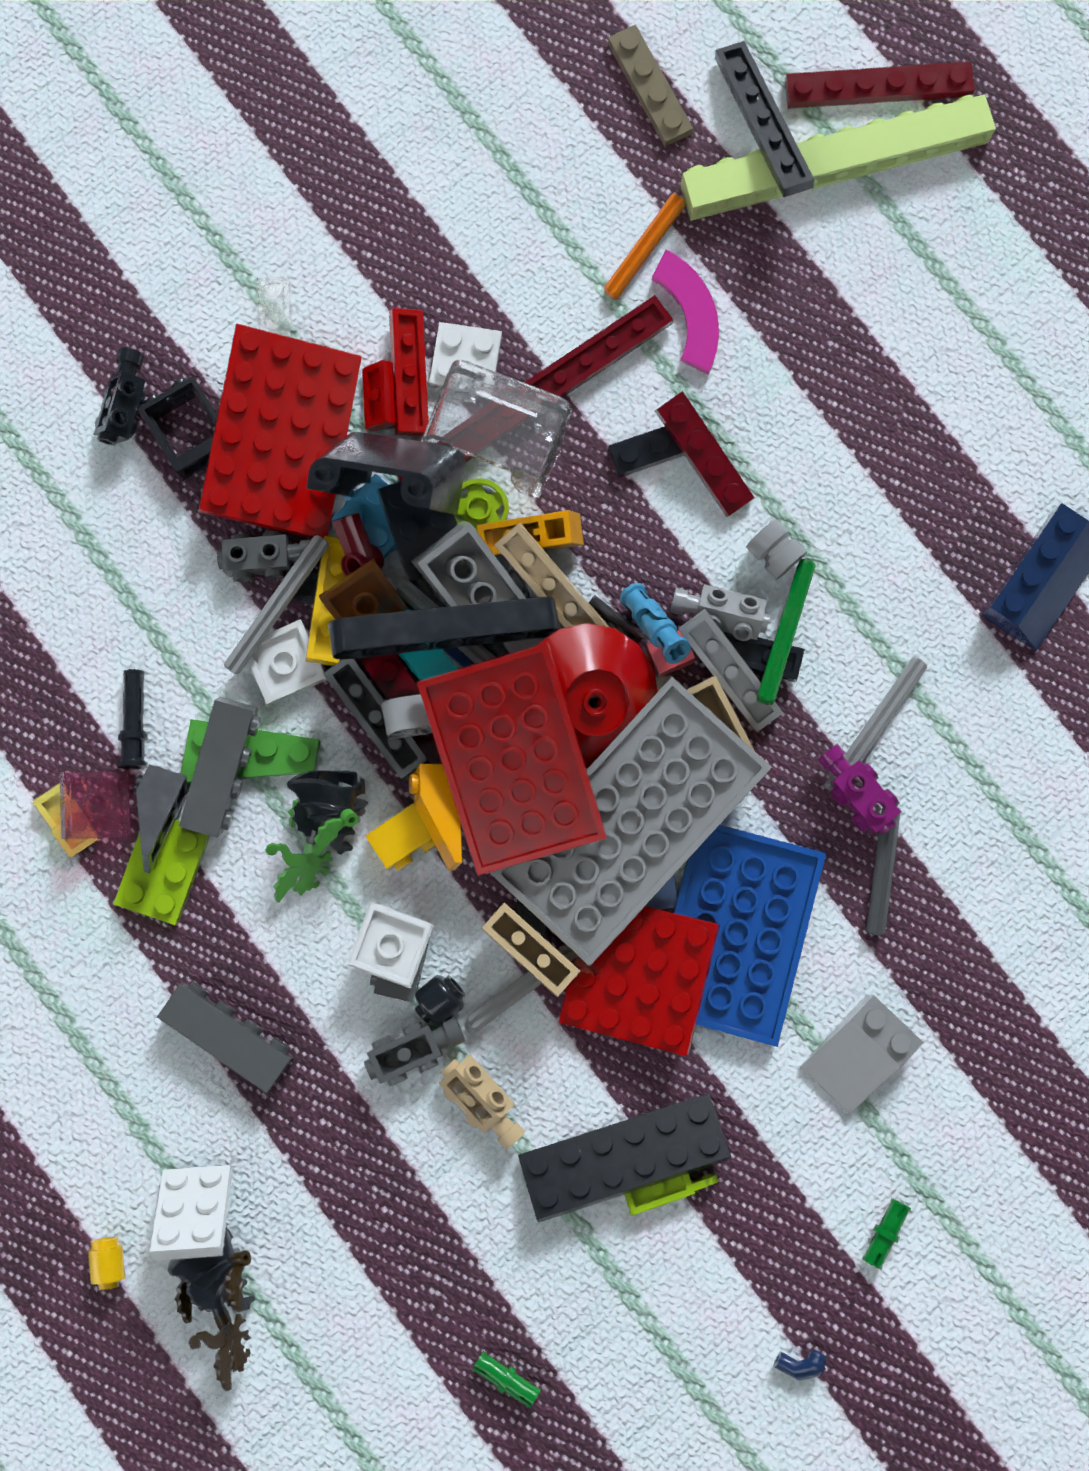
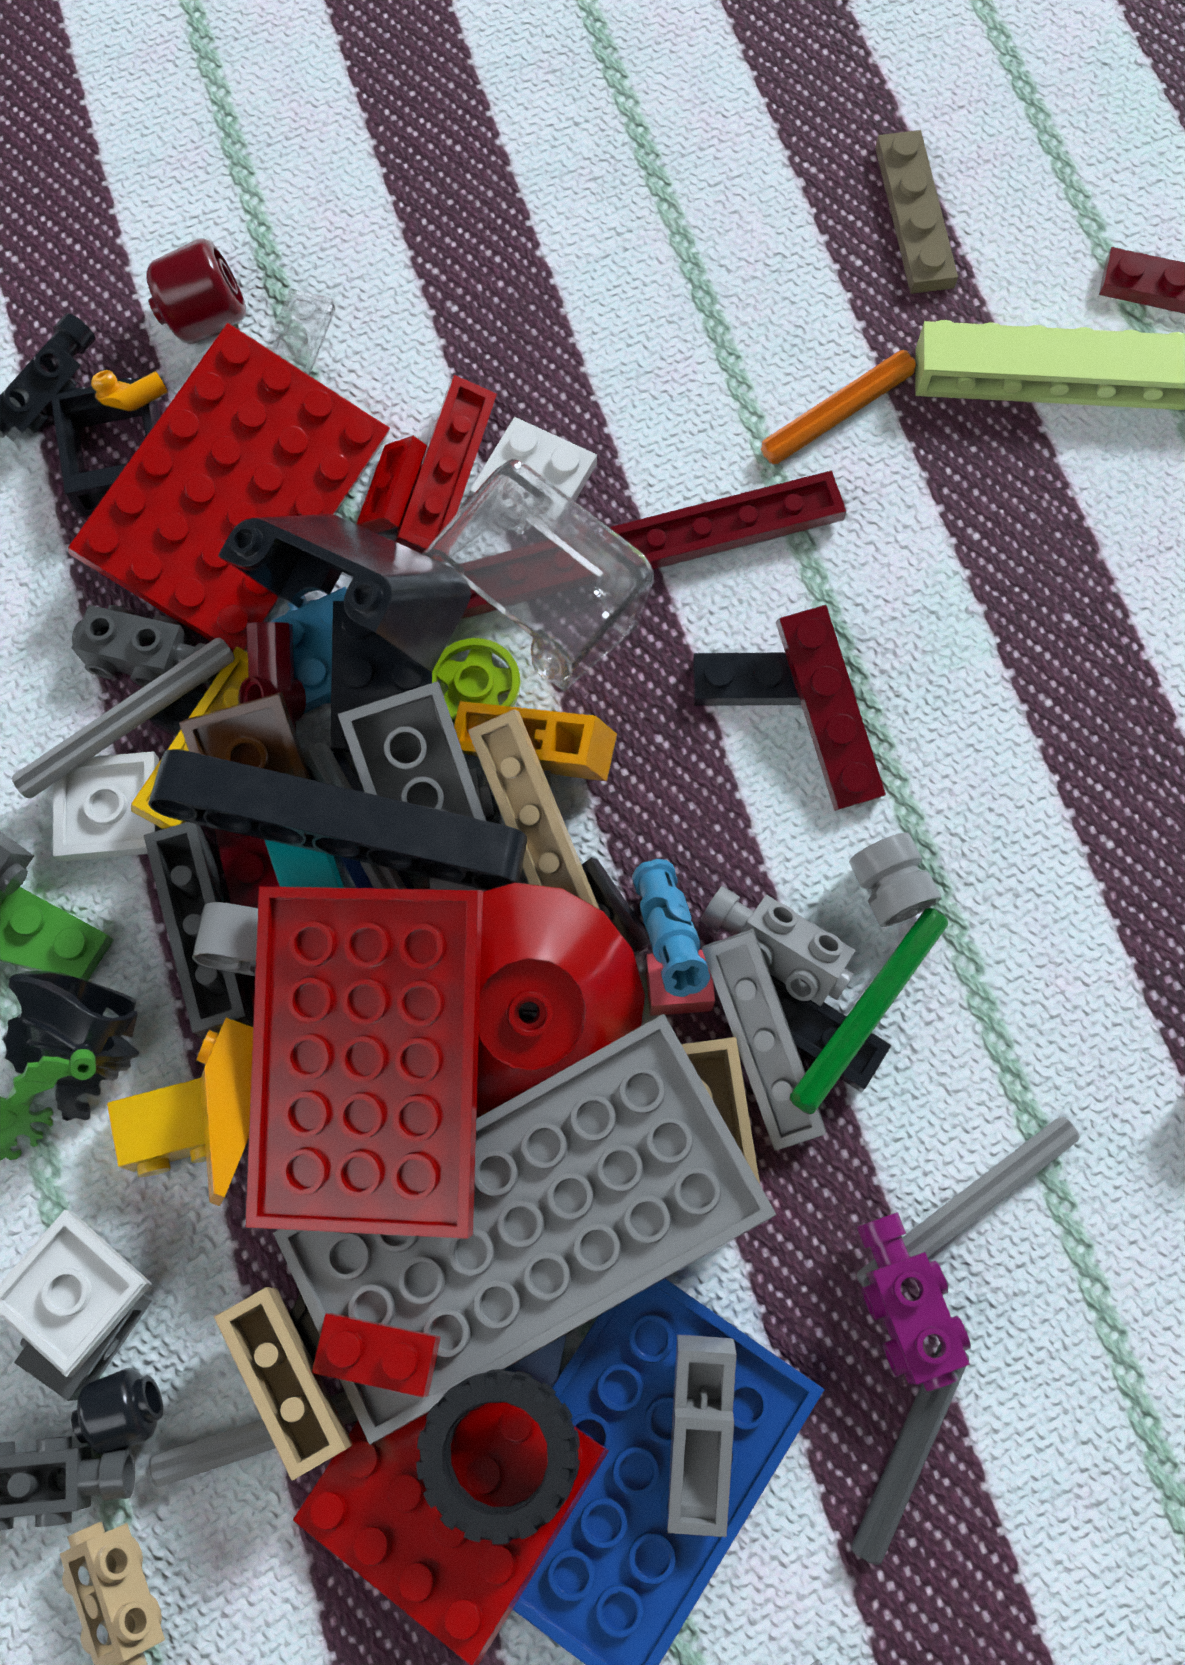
camera: 20 degrees right, 10 degrees down
(189, 394) = (125, 395): none -> light orange arm
(198, 303) = (194, 291): none -> dark red head
(576, 917) = (376, 1355): none -> red plate
(664, 981) = (441, 1483): none -> black tyre
(698, 309) = (887, 507): dark pink tile -> none
(764, 119) = (1064, 289): black plate -> none
(767, 899) = (701, 1436): none -> light grey slope

